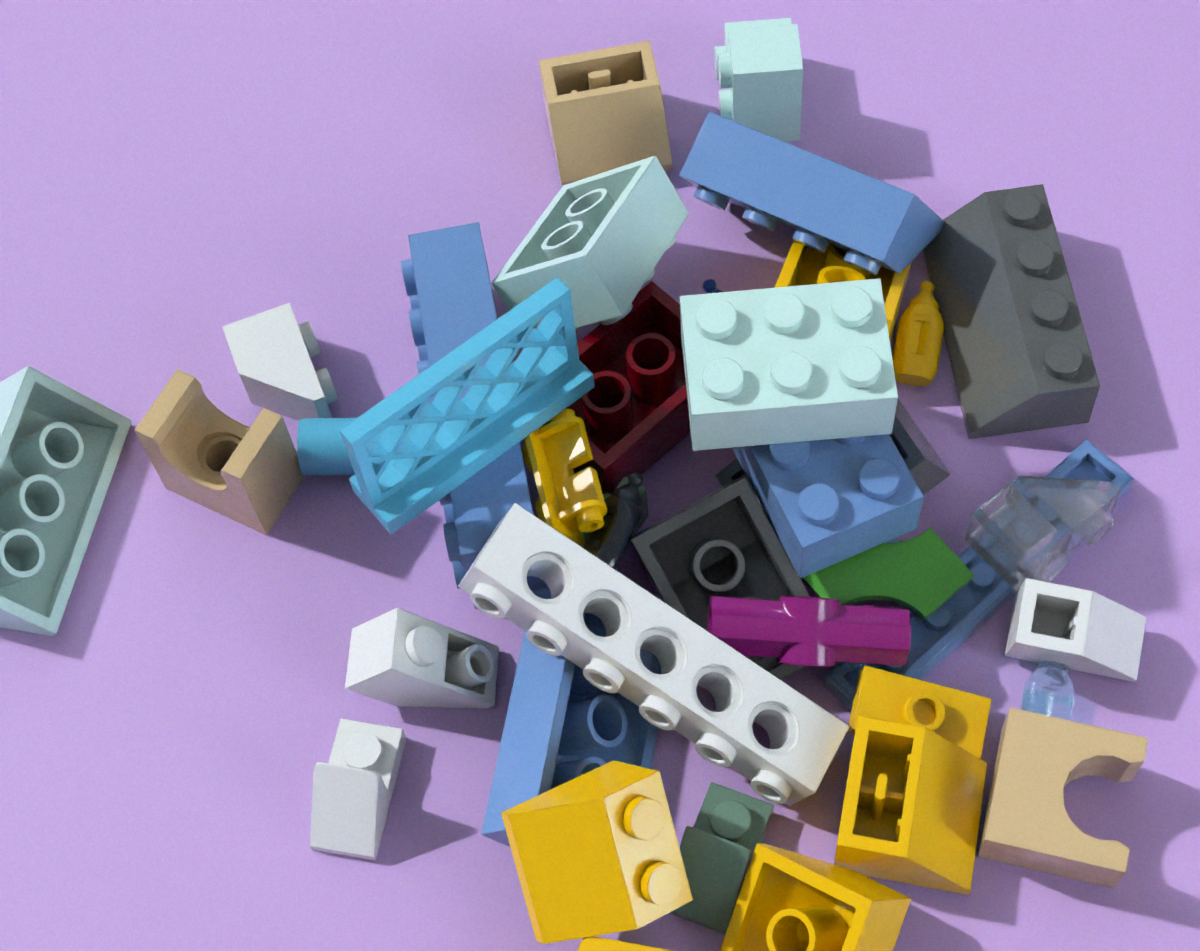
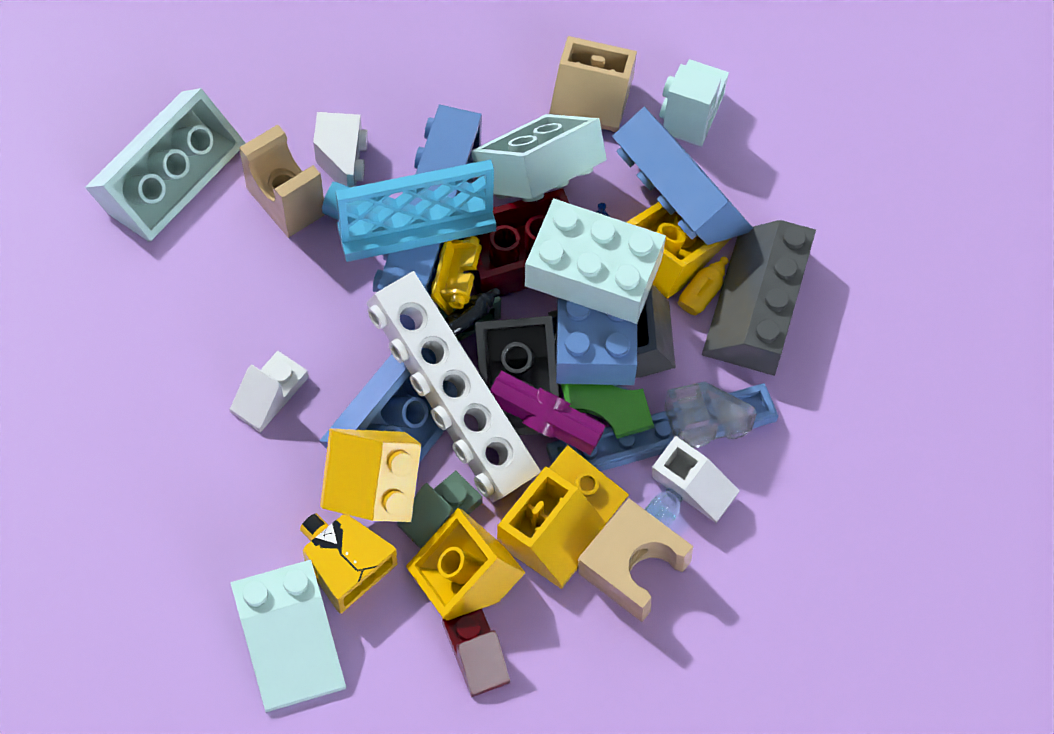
camera: 15 degrees right, 0 degrees up
(421, 663) = (334, 341): white slope -> none

